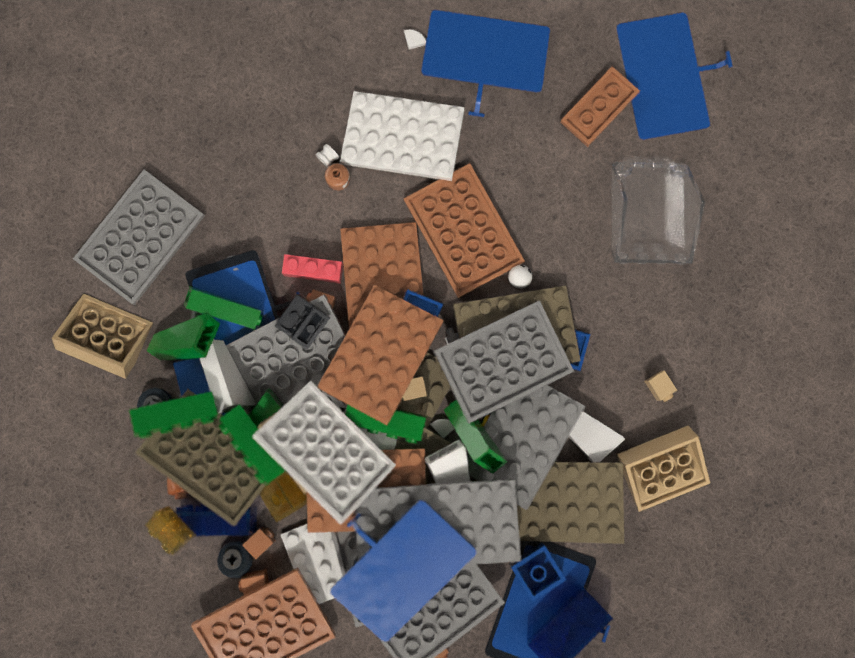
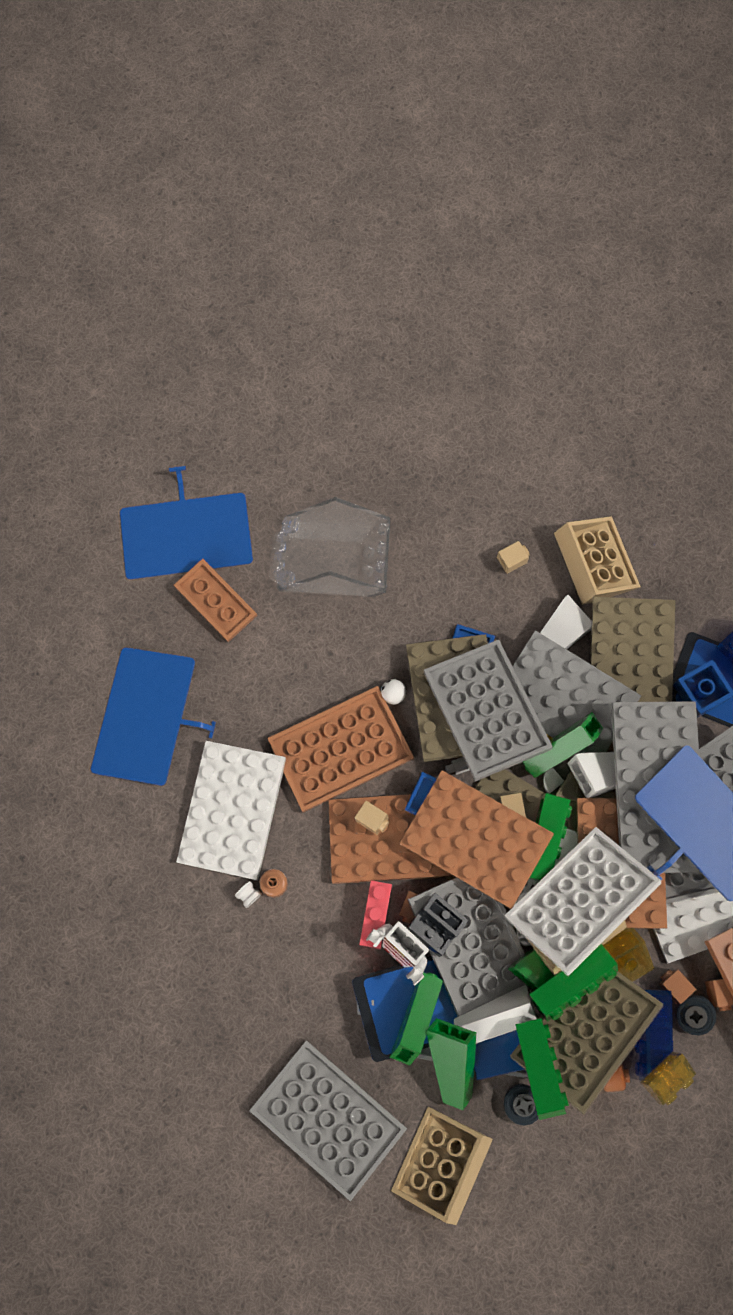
camera: 85 degrees left, 10 degrees down
(281, 293) = (403, 947): none -> white torso
(397, 260) = (372, 818): none -> tan brick
(414, 39) = (122, 793): white tile -> none

